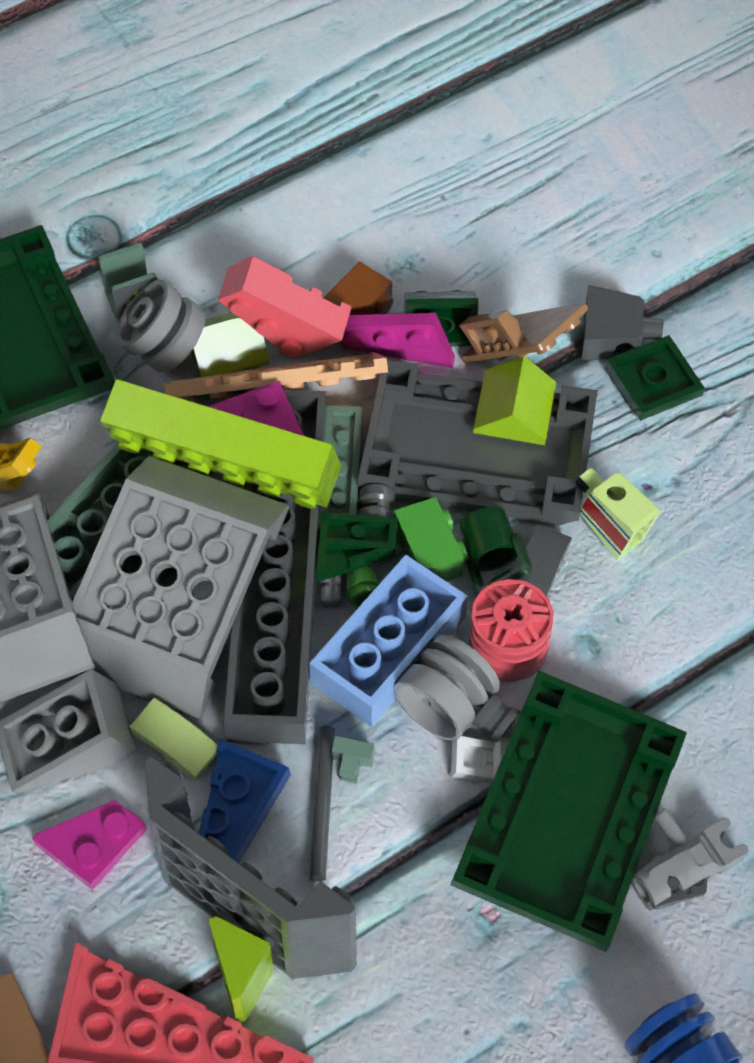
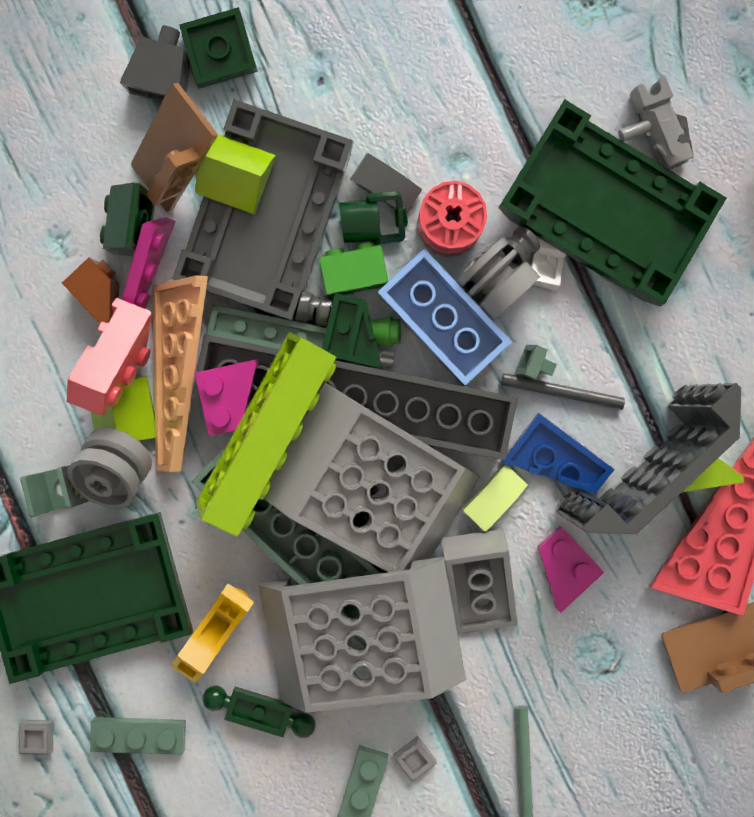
camera: 85 degrees left, 30 degrees up
(616, 511) = (359, 108): yellowish green torso -> none

